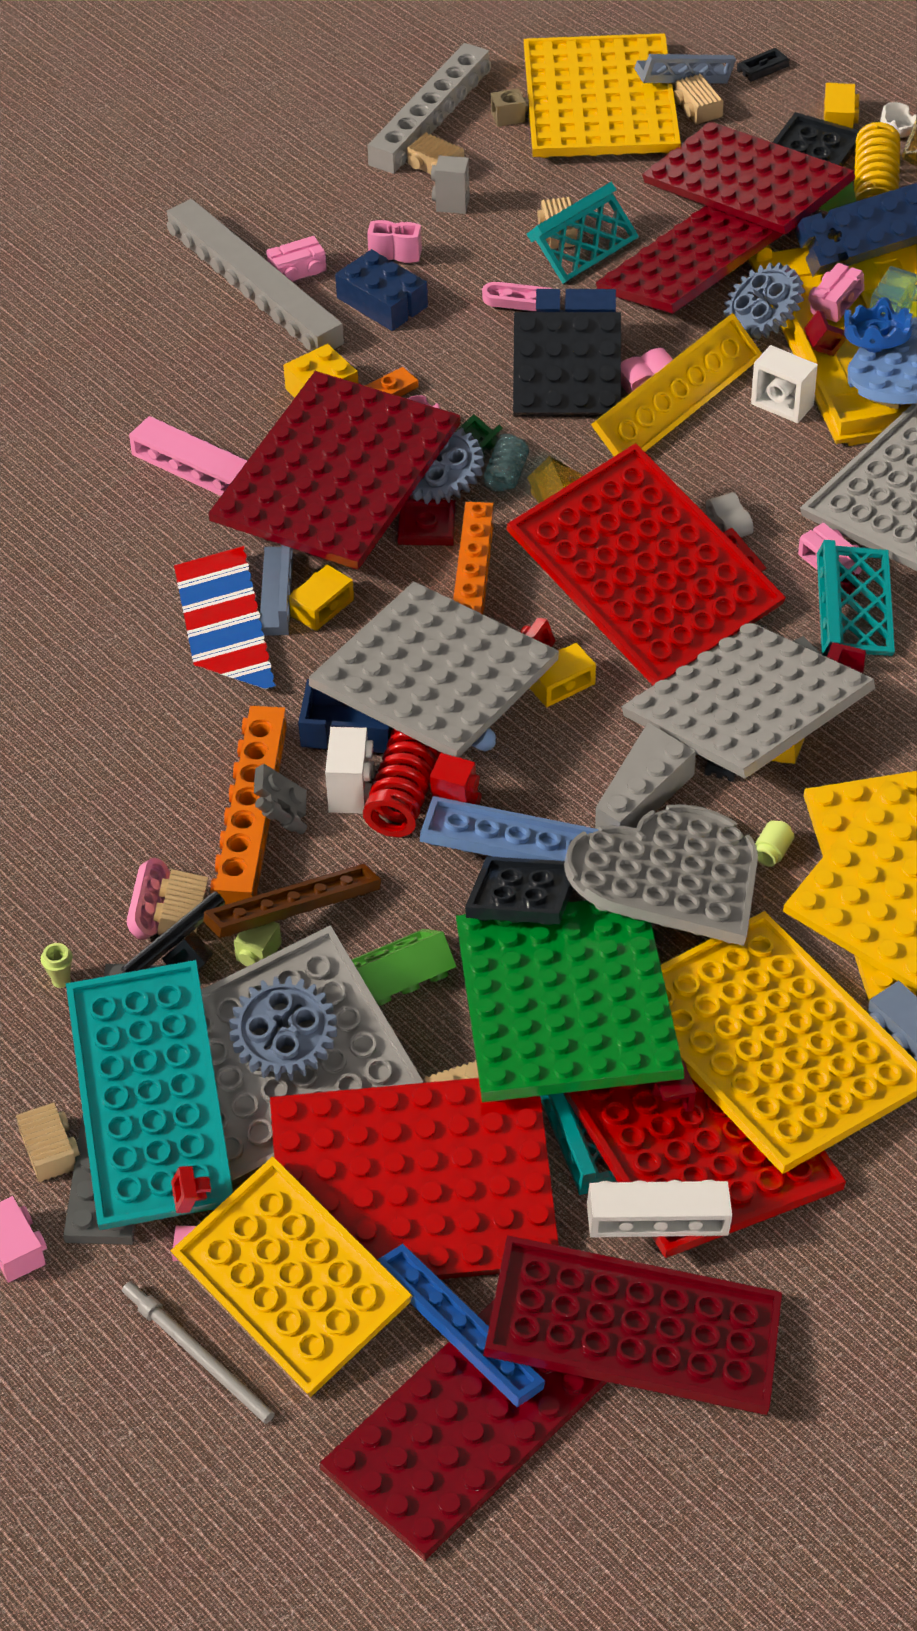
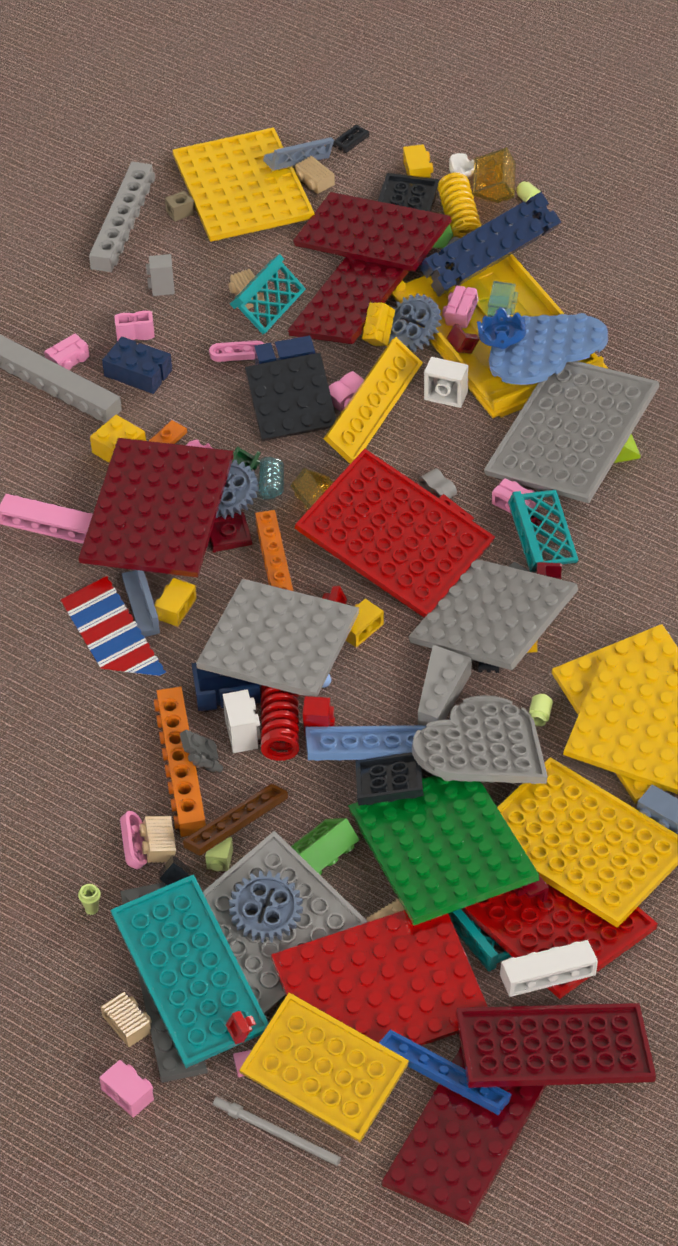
camera: 15 degrees left, 0 degrees up
(173, 935) = (163, 861): black axle -> none
(426, 150) = (137, 253): tan brick -> none
(716, 293) = (378, 324): none -> yellow brick

